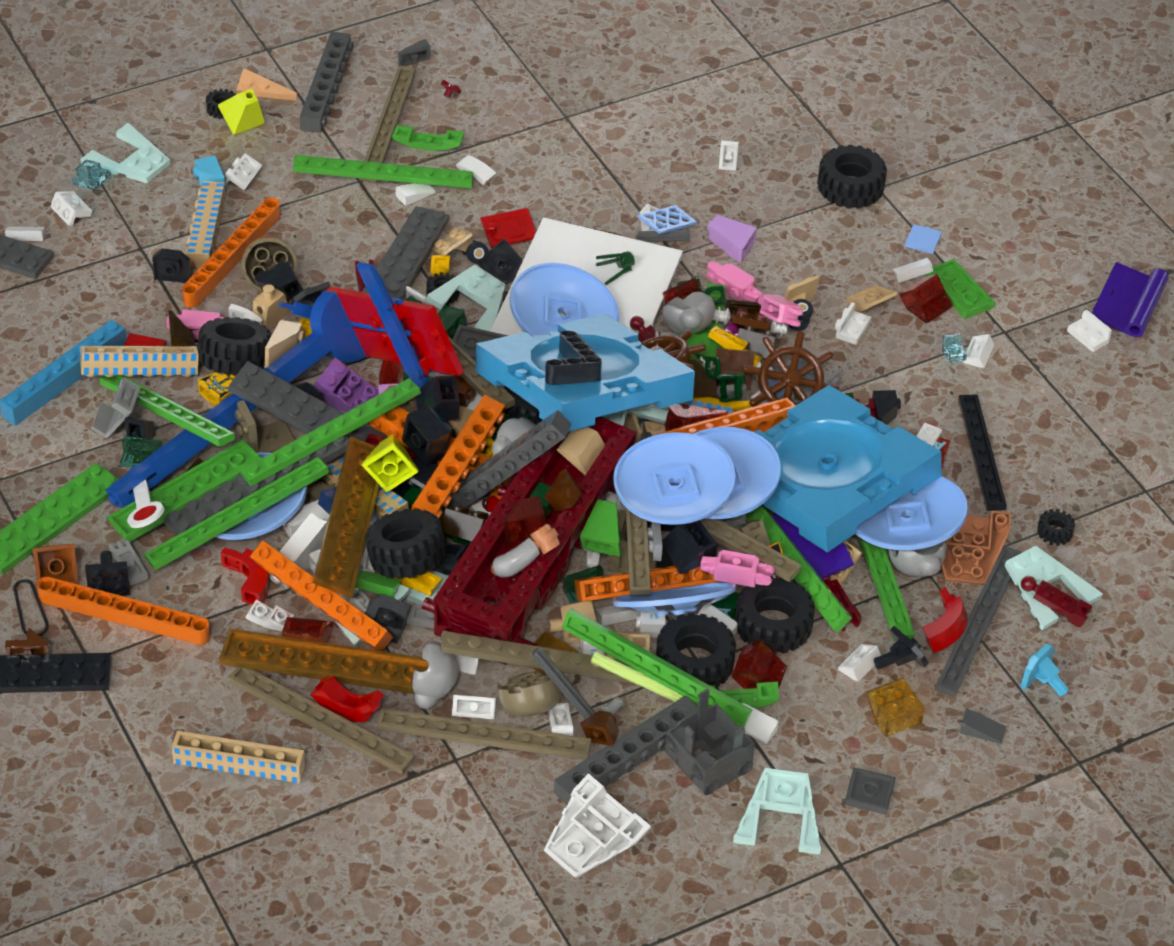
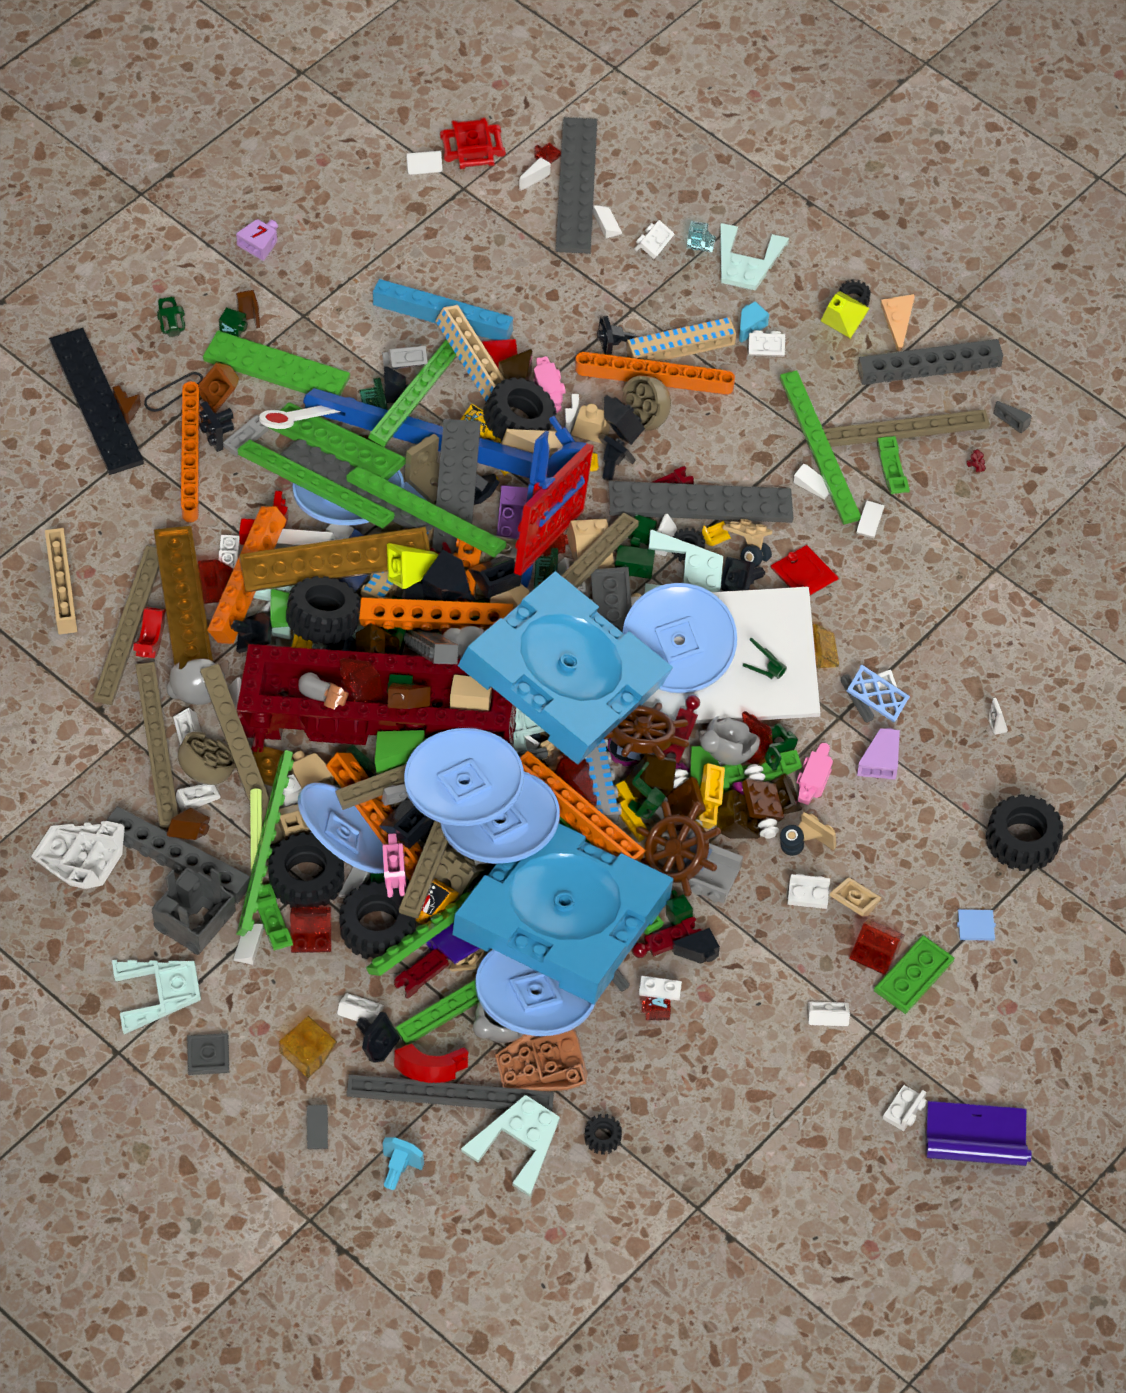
camera: 70 degrees right, 10 degrees up
(562, 683) = (207, 773): dark grey axle -> none
(579, 365) = (542, 656): black beam -> none
(613, 706) = (222, 828): light grey pin -> none
(780, 309) = (776, 816): bright pink hinge -> none
(913, 270) = (915, 924): white slope -> none
(953, 348) = (814, 988): clear light blue bracket -> none
(982, 453) = (683, 1048): black tile -> none
(1057, 600) = (496, 1150): dark red plate -> none

